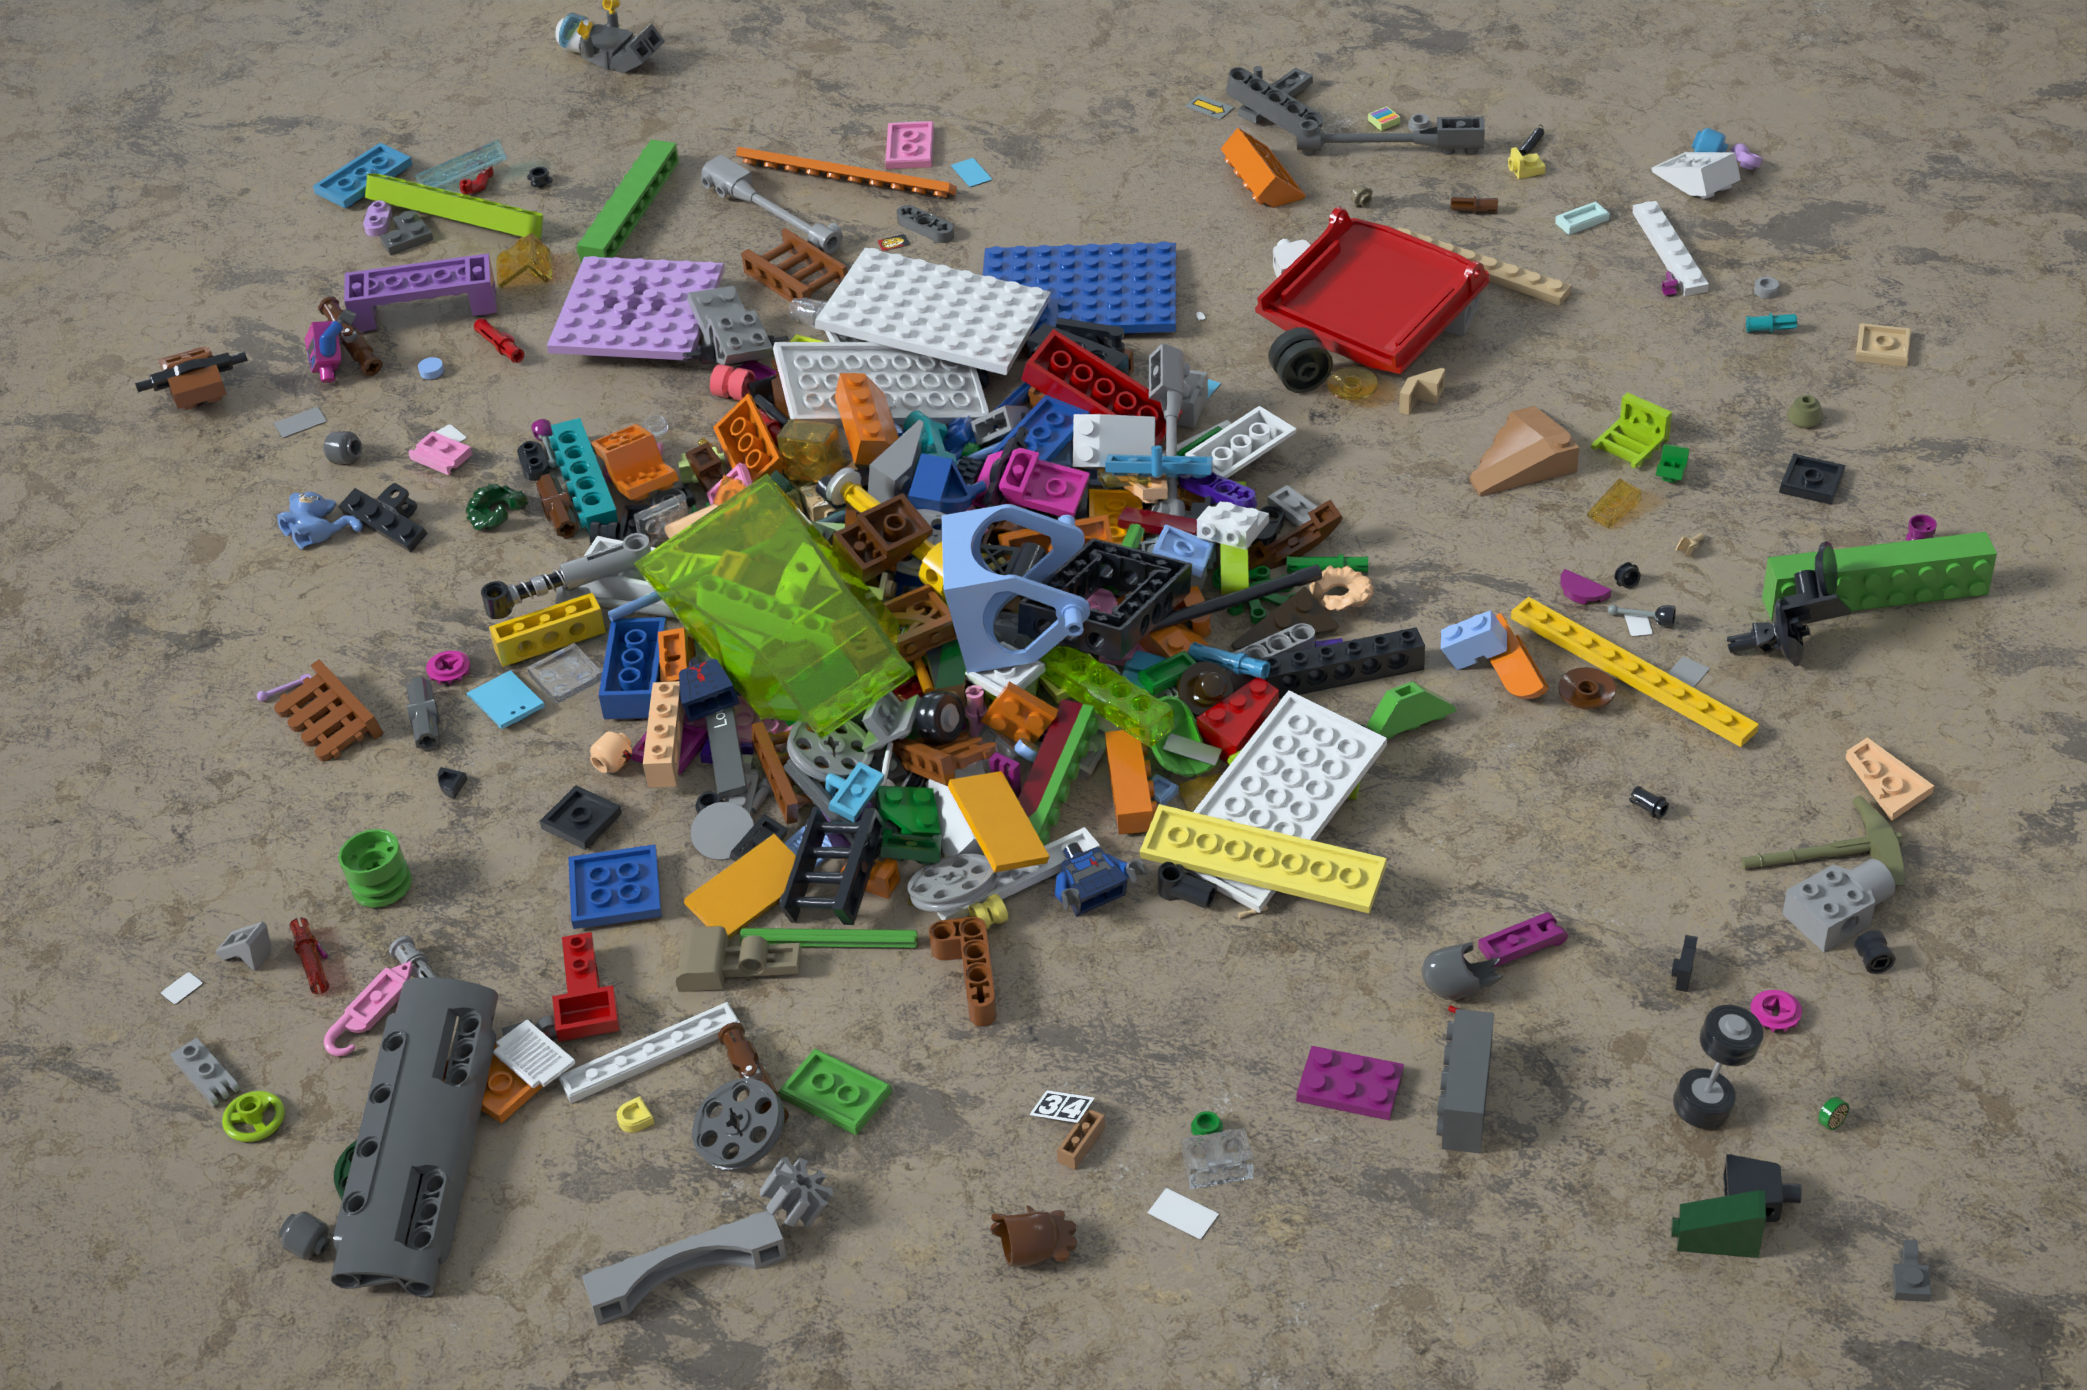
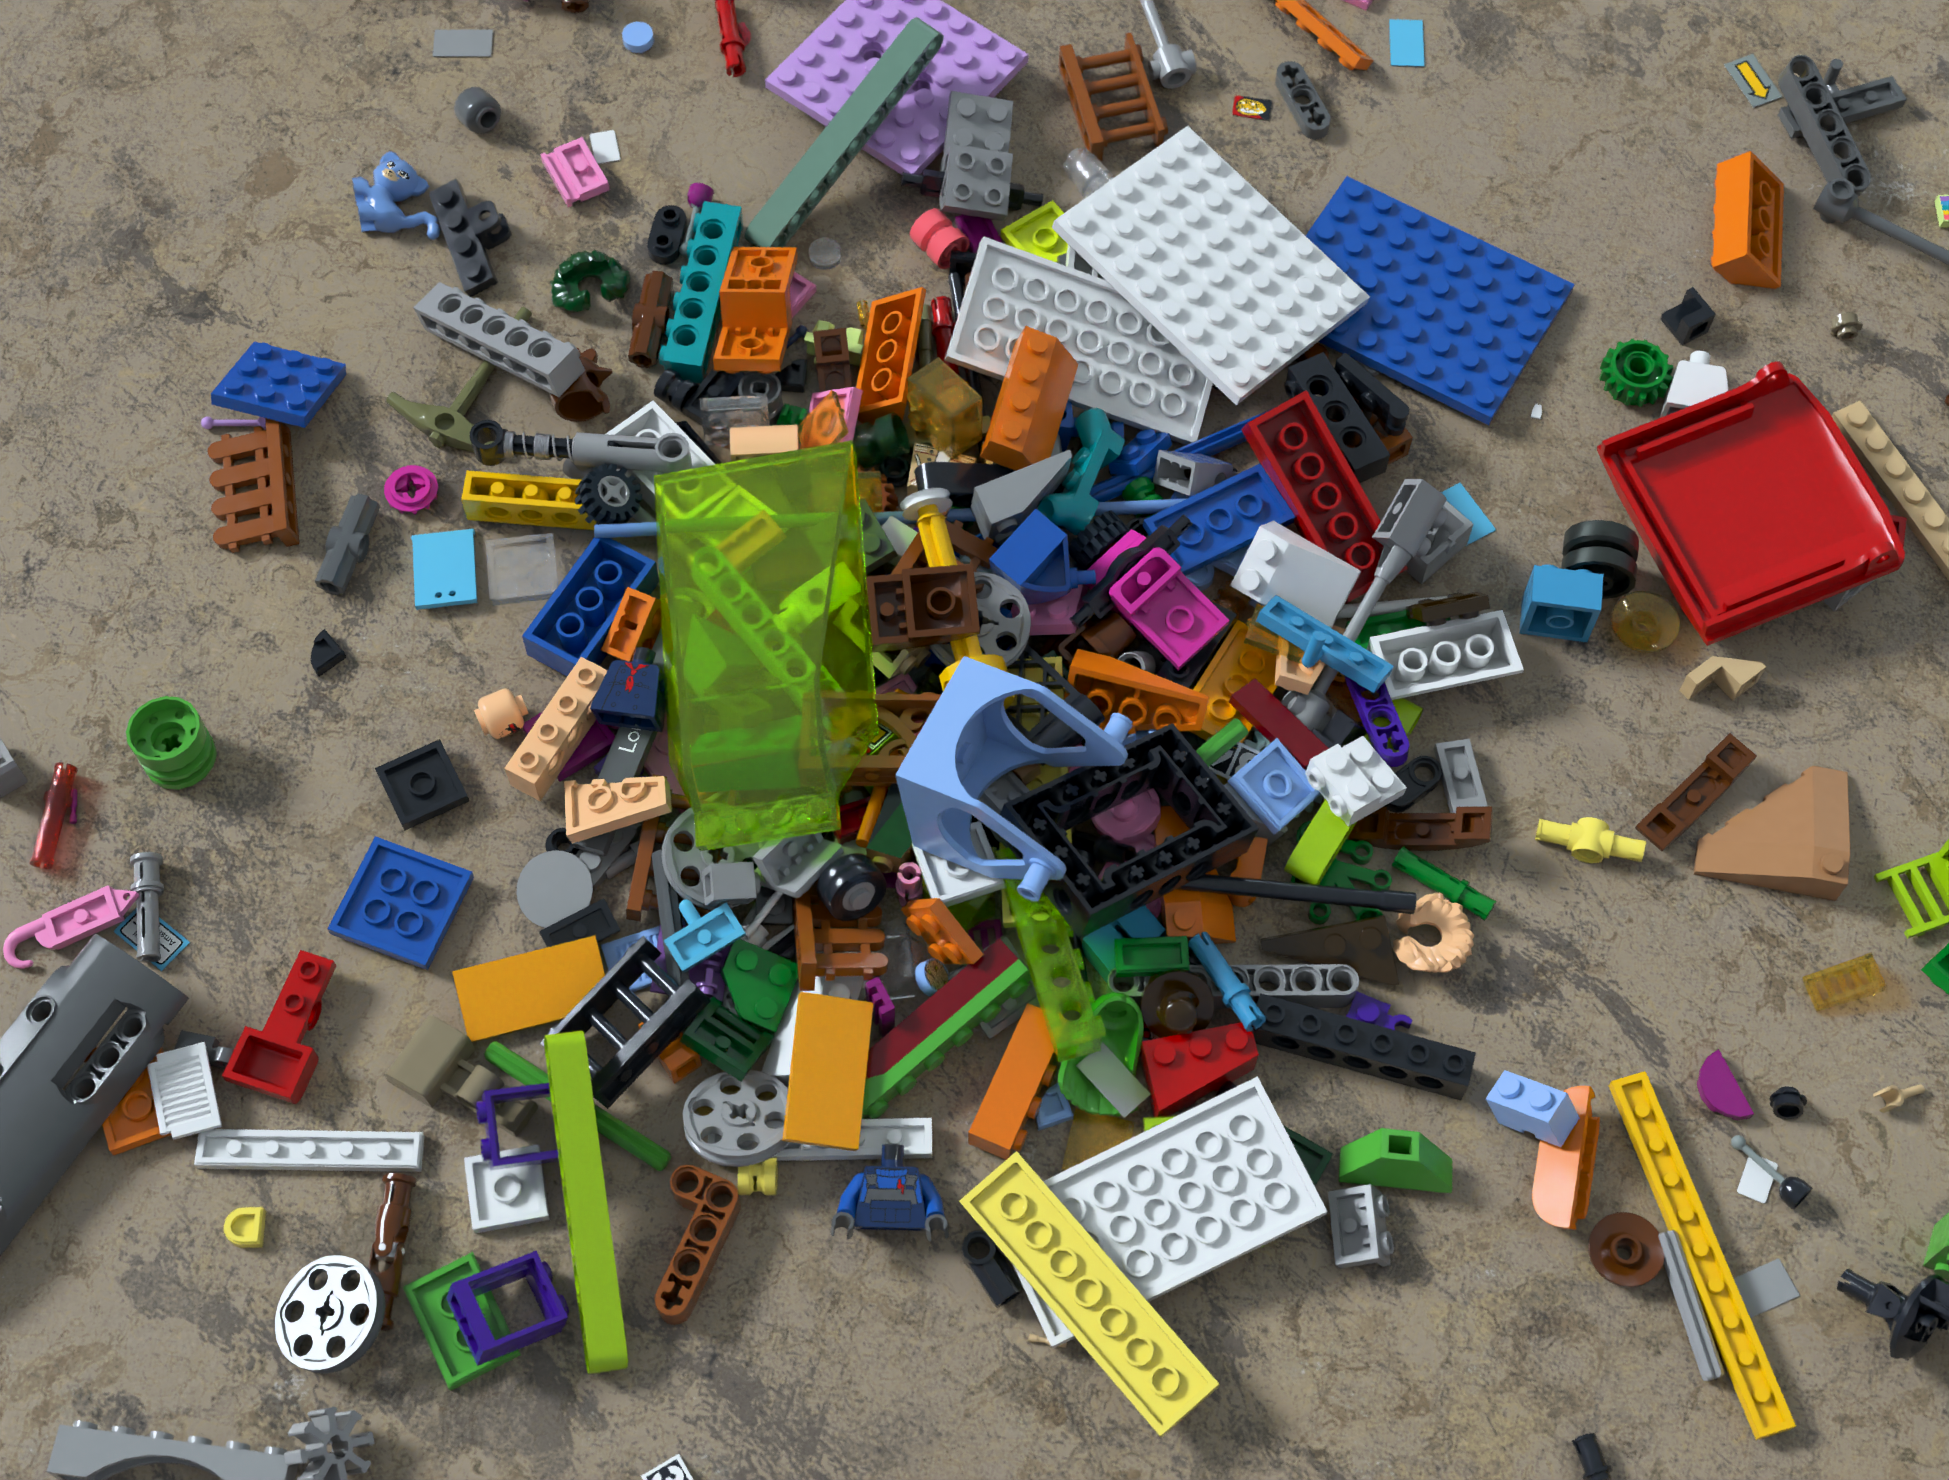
camera: 25 degrees right, 20 degrees up
(305, 645) = (278, 384): none -> blue plate
(450, 621) = (448, 424): none -> olive piece
(457, 550) = (500, 339): none -> light grey brick
(530, 557) = (584, 397): none -> reddish brown piece
(604, 592) = (607, 484): none -> black wheel
(629, 346) = (845, 135): none -> sand green beam
(731, 757) = (611, 806): none -> light nougat wing
(812, 1006) = (505, 1195): none -> white tile
(827, 931) = (486, 1115): none -> dark purple window
(853, 748) = (730, 883): none -> light grey brick
(856, 1075) = (473, 1323): none -> dark purple window
(881, 969) = (585, 1202): none -> lime beam
(1223, 418) = (1457, 604): none -> dark brown plate
(1249, 268) = (1638, 357): none -> green gear
(1262, 229) = (1689, 318): none -> black panel
(1294, 390) = (1561, 603): none -> dark azure brick
(1403, 503) = (1590, 840): none -> light yellow pin
(1410, 756) = (1360, 1226): none -> light grey bracket
(1452, 450) = (1696, 793): none -> reddish brown slope
(1649, 700) = (1690, 1307): none -> light grey axle

